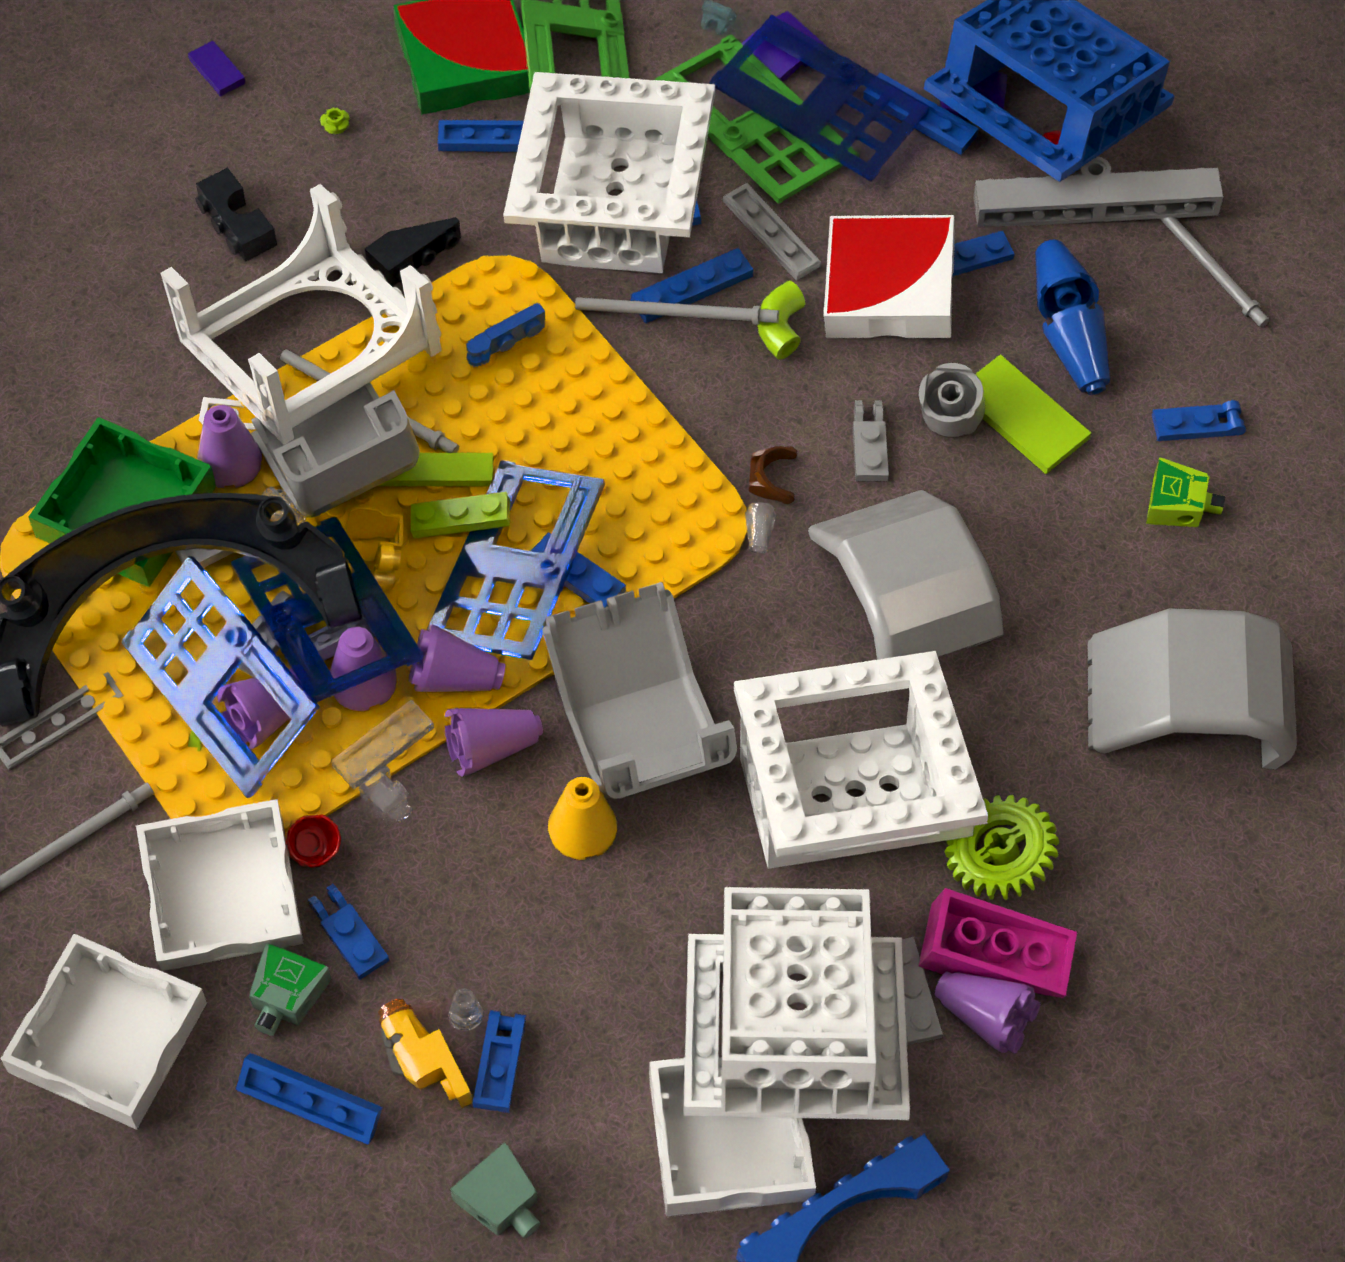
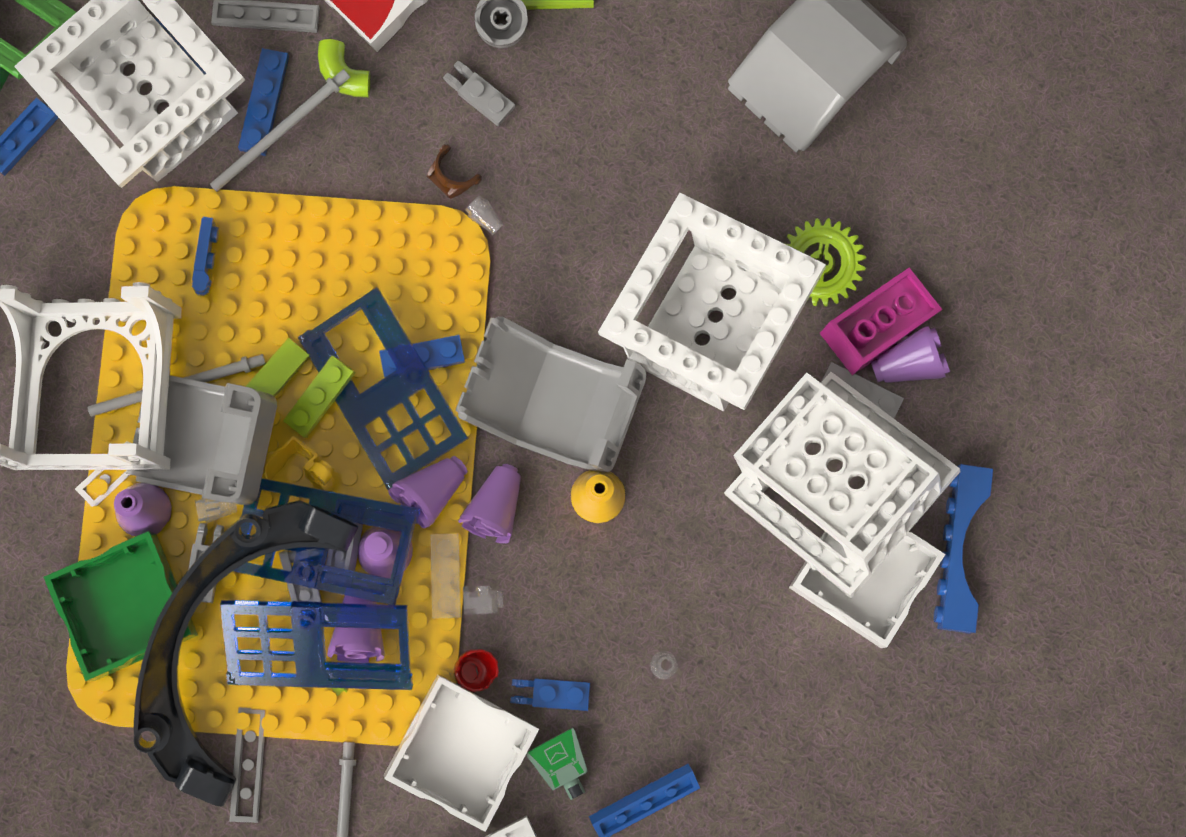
camera: 55 degrees left, 20 degrees up
(412, 247) = (73, 262): black slope -> none
(420, 1055) = (669, 716): yellow plate -> none
(498, 1194) = (796, 736): sand green torso -> none
(499, 1062) = (712, 670): blue plate -> none
(916, 575) = (603, 154): light grey windscreen -> none

